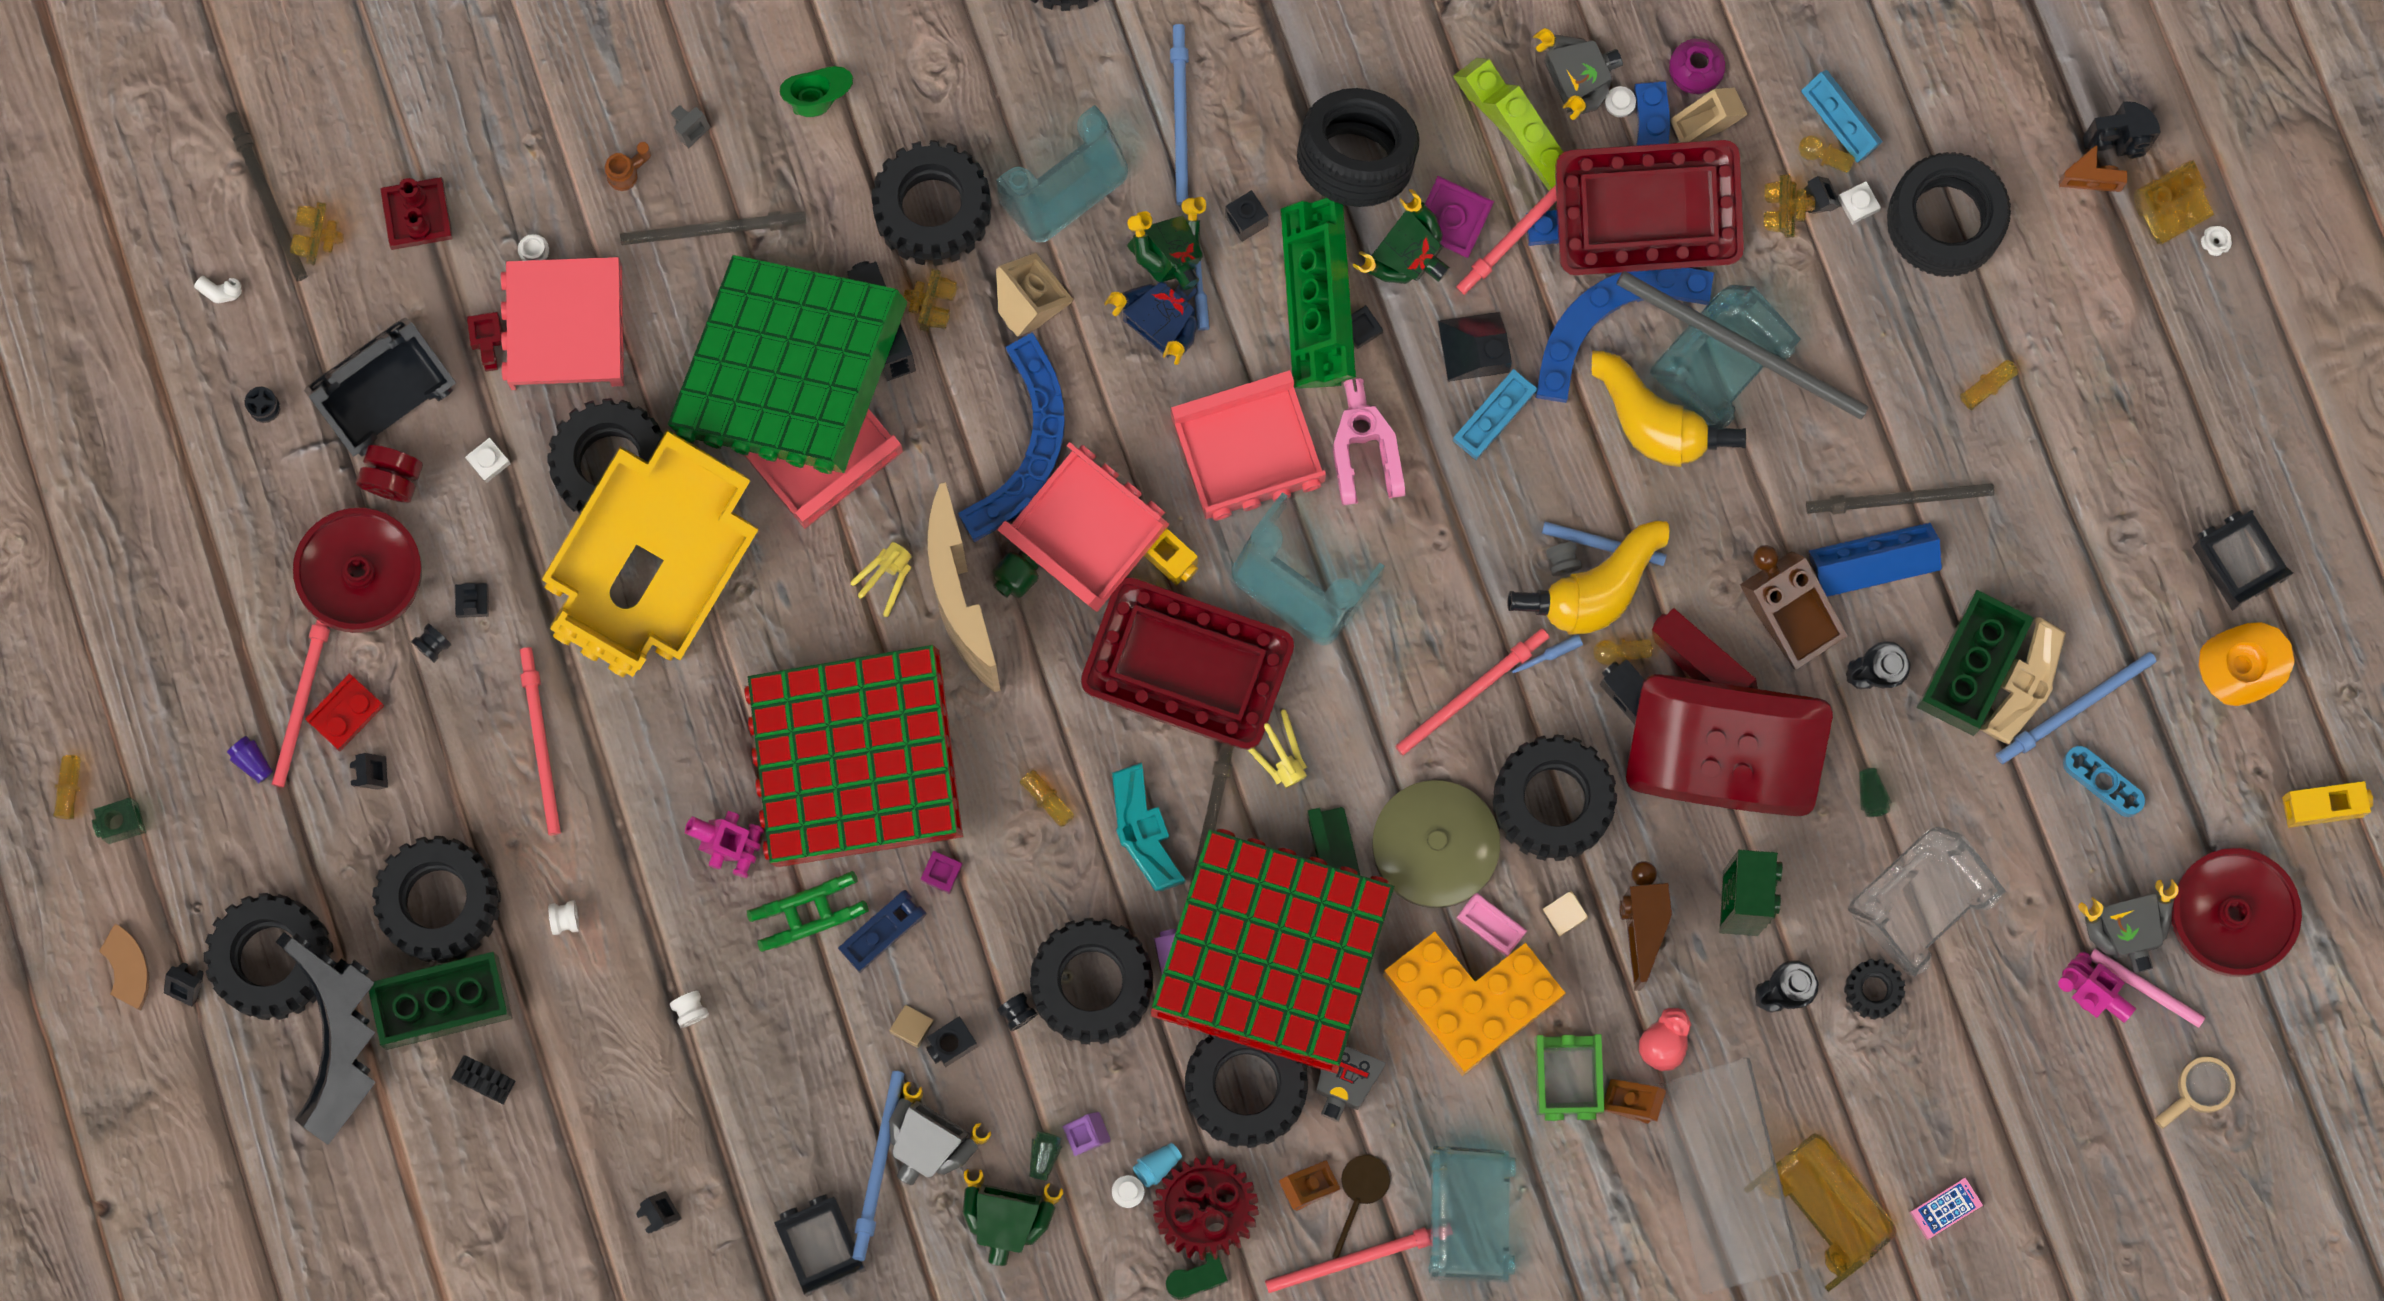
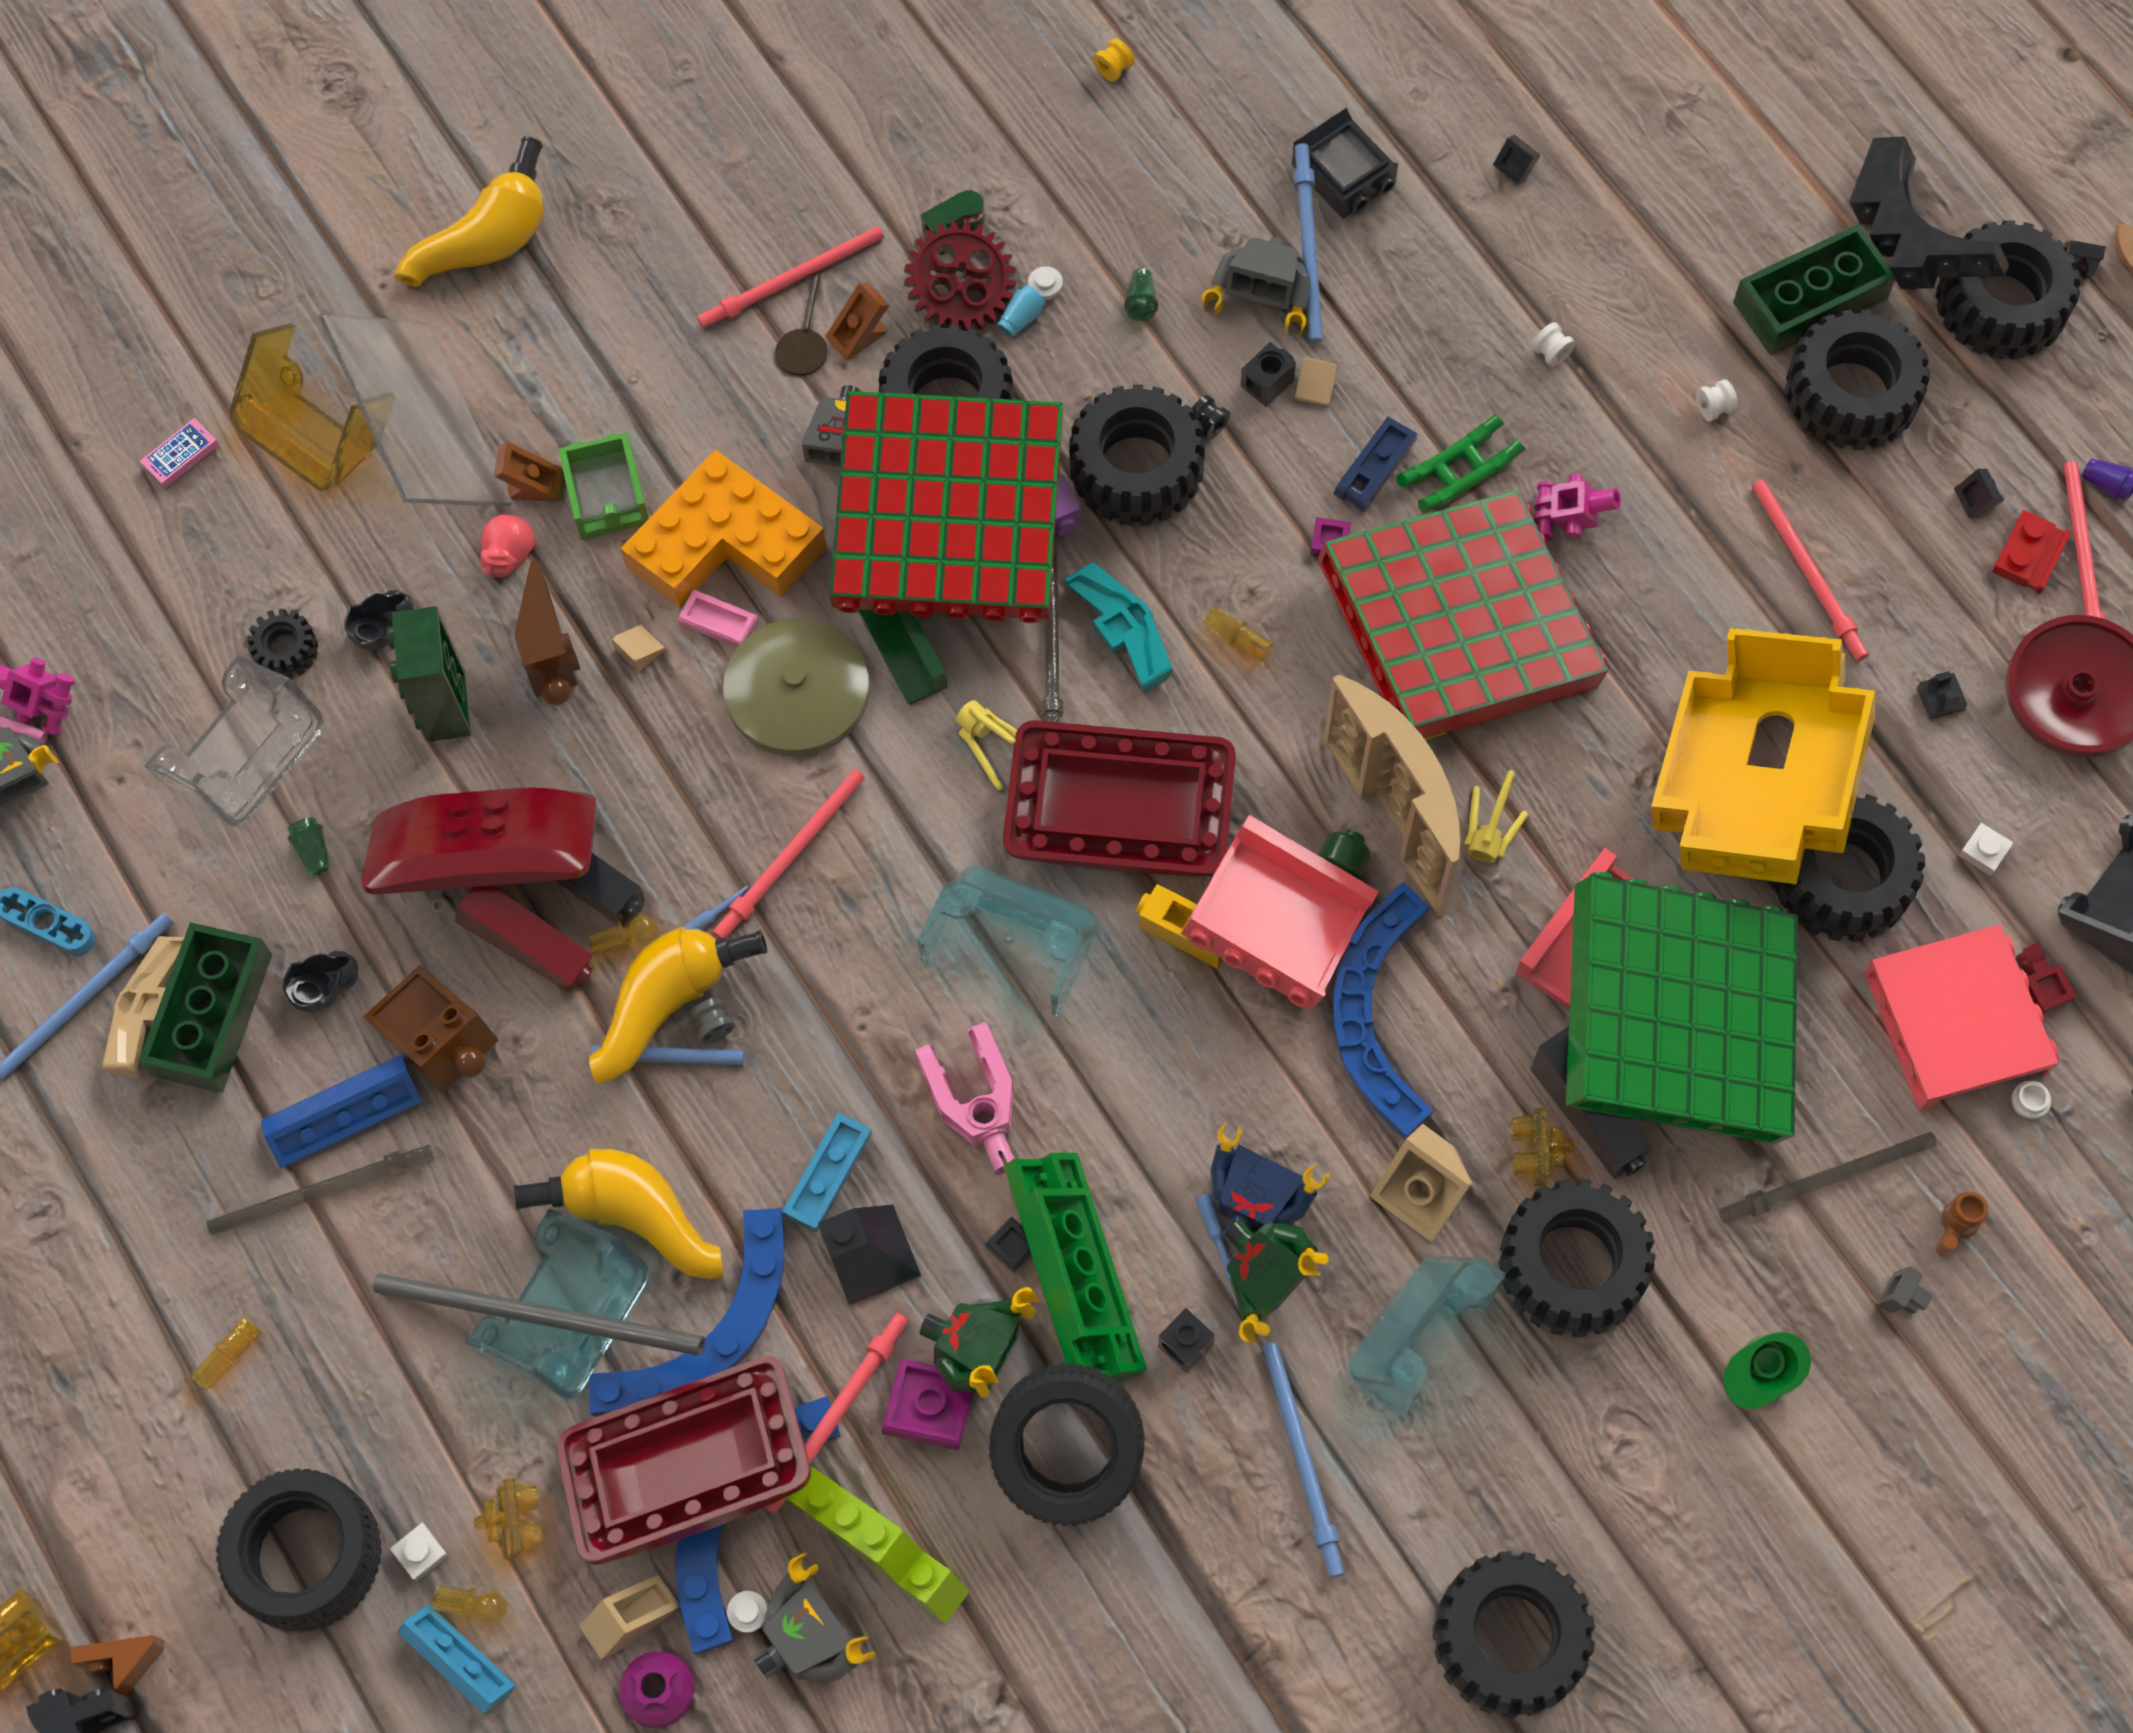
camera: 170 degrees right, 10 degrees down
(389, 473) = (2091, 793): dark red wheel -> none
(431, 643) = (1968, 635): black wheel -> none
(483, 1079) = (1740, 227): black tyre -> none
(1005, 1217) = (1164, 223): dark green torso -> none
(1086, 1133) = (1102, 328): medium lavender slope -> none
(1247, 446) = (1112, 1065): coral panel -> none
(1470, 1214) = (683, 332): clear light blue windscreen -> none
(1574, 760) = (661, 708): black tyre -> none
(1823, 193) = (466, 1547): black tile -> none

